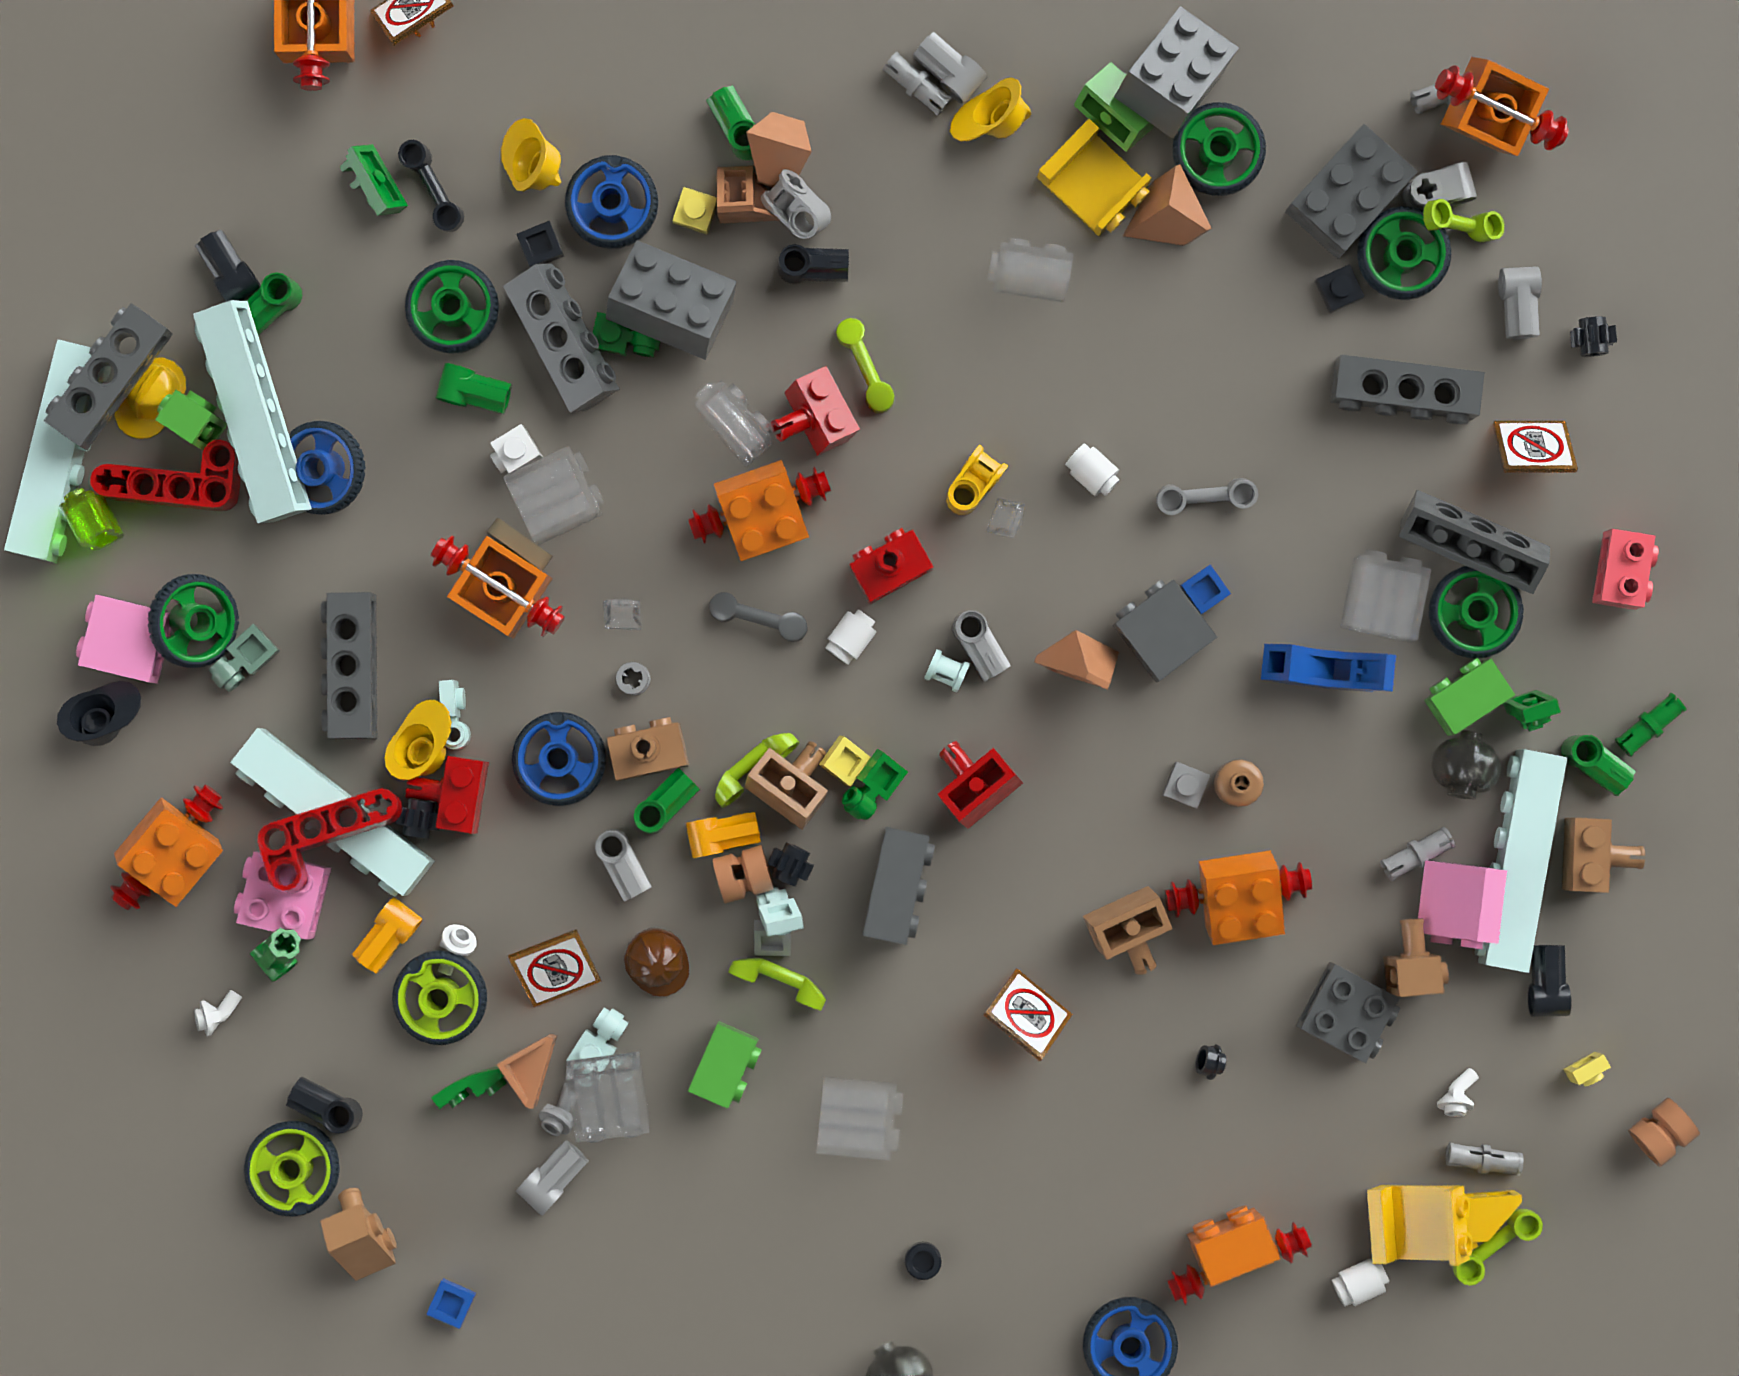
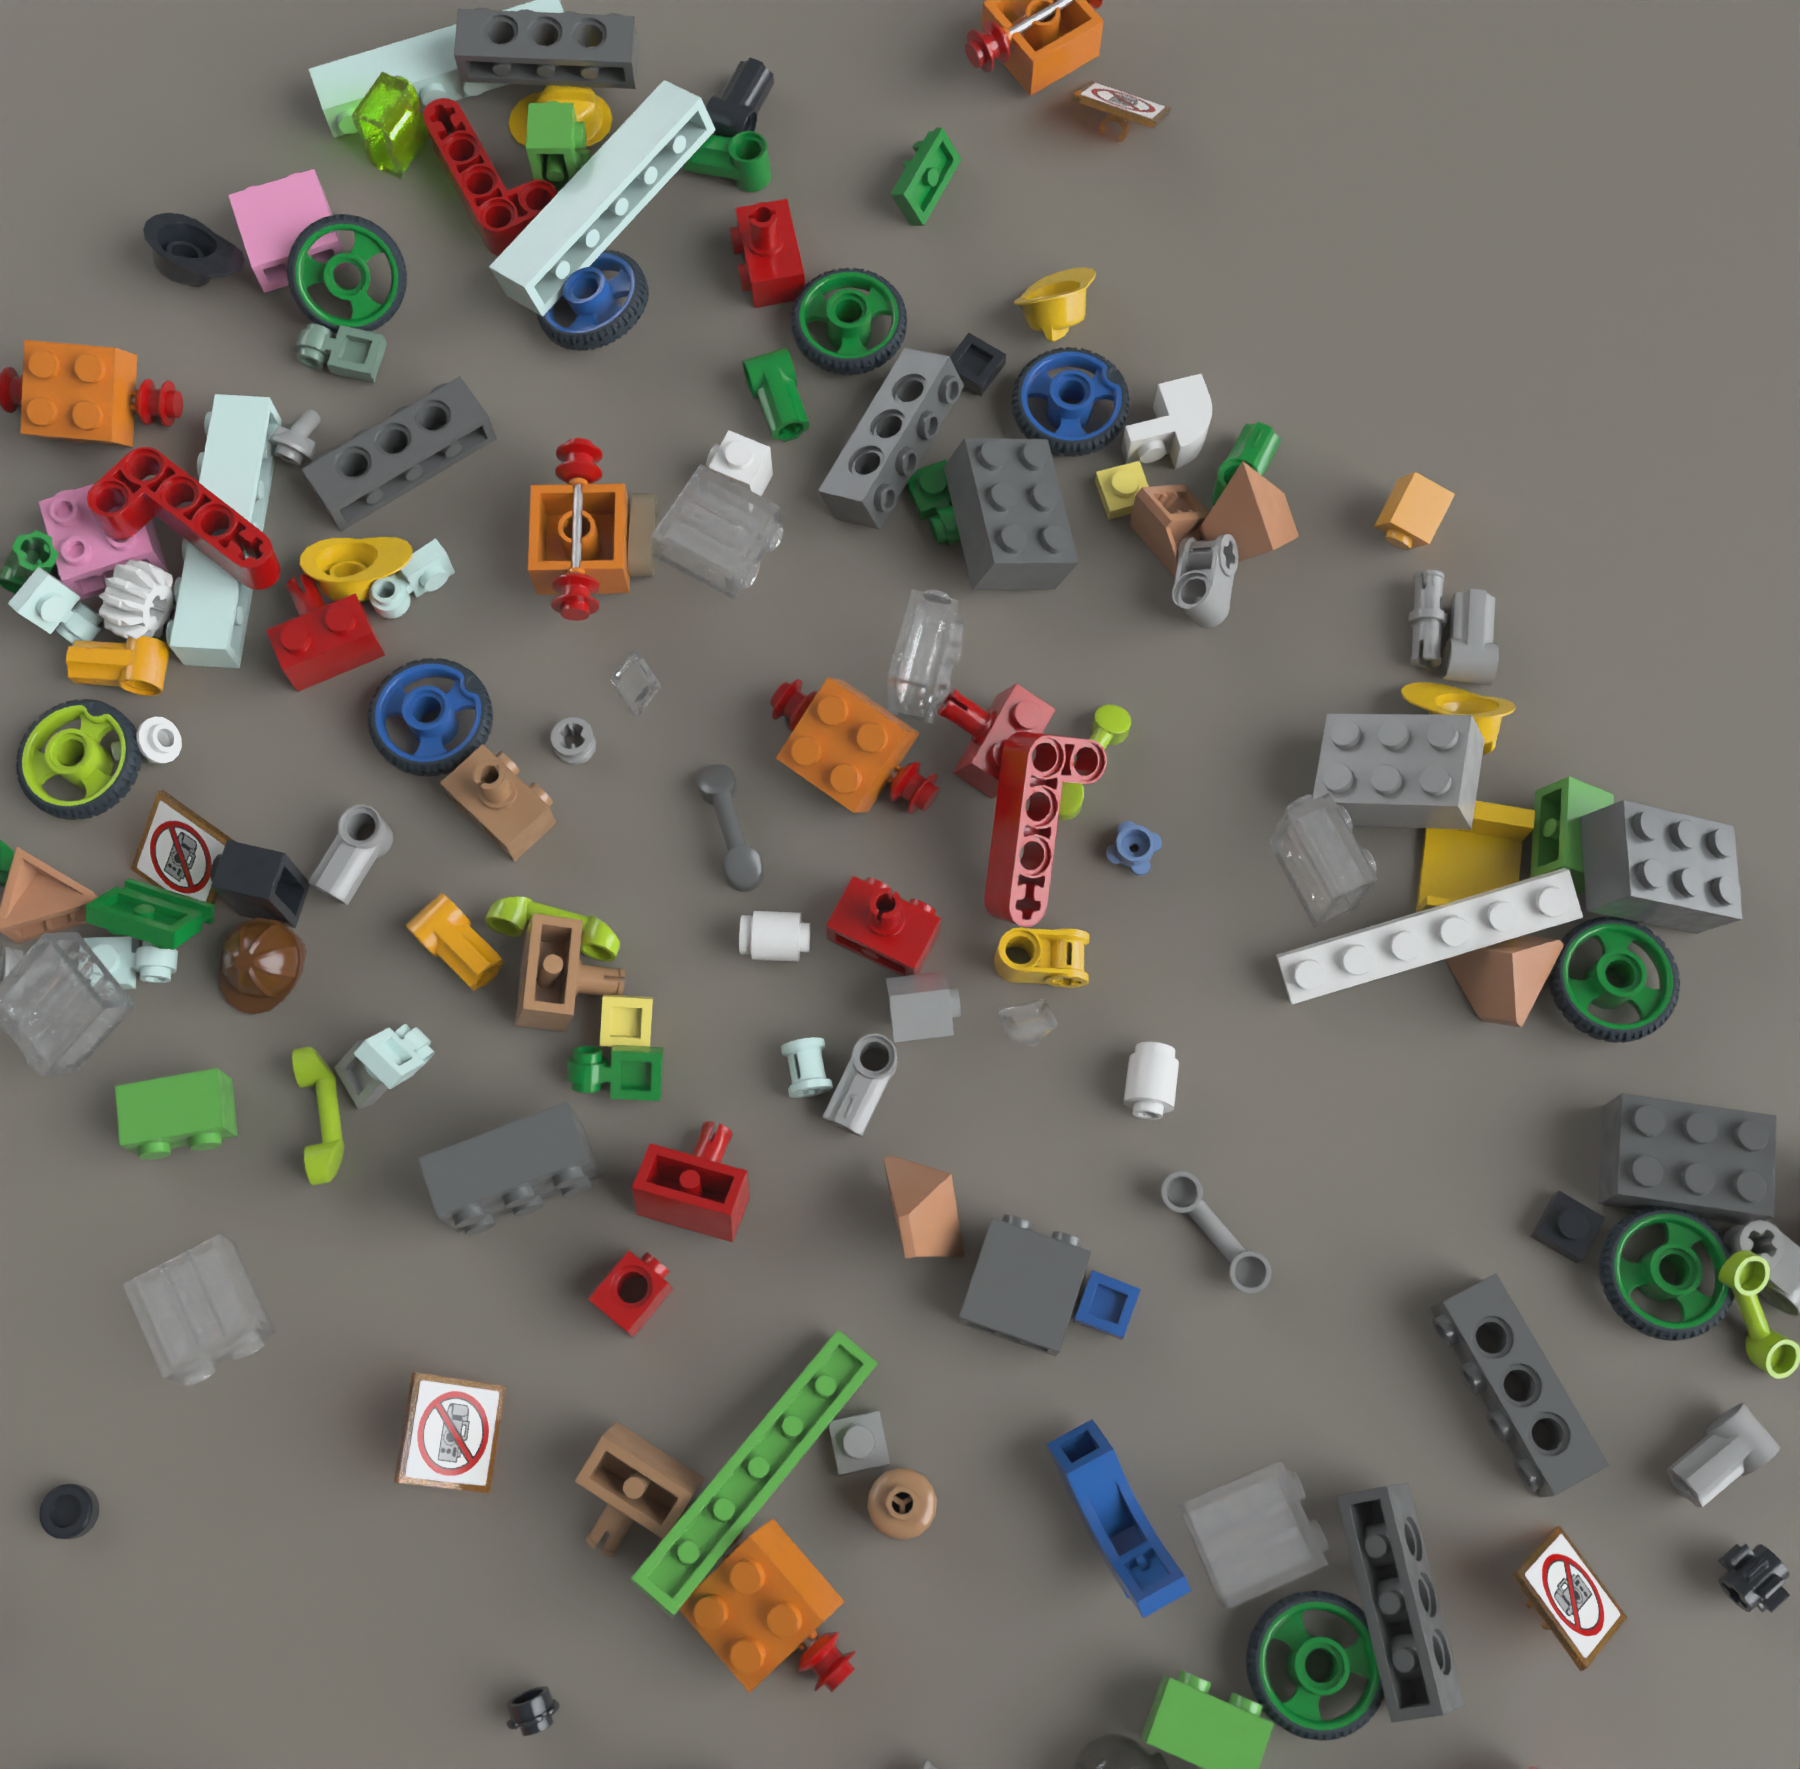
camera: 55 degrees right, 15 degrees down
(296, 731) = (293, 444): none -> light grey plate
(324, 952) = (51, 602): none -> light aqua plate
(353, 898) = (137, 600): none -> white gear
(363, 325) = (769, 253): none -> red brick
(418, 158) = (978, 205): black bar -> none
(418, 818) = (268, 611): black gear -> none
(581, 1010) = (150, 914): none -> green plate
(609, 931) = (259, 882): none -> black piece
(668, 799) = (454, 857): green piece -> none
(679, 139) = (1180, 424): none -> white brick
(755, 869) = (413, 985): nougat wheel -> none
(790, 864) = (465, 1037): black gear -> none
(819, 264) = (1157, 639): black piece -> none
(843, 40) = (1413, 511): none -> light orange brick
(885, 432) = (1026, 898): none -> red beam
(944, 367) = (1137, 835): none -> medium blue plate
(957, 577) = (922, 1006): none -> light grey brick
(1009, 183) = (1402, 769): none -> light grey brick
(1022, 874) = (609, 1293): none -> red brick
(1121, 242) = (1429, 935): none -> white plate
(1167, 853) = (752, 1474): none -> bright green plate

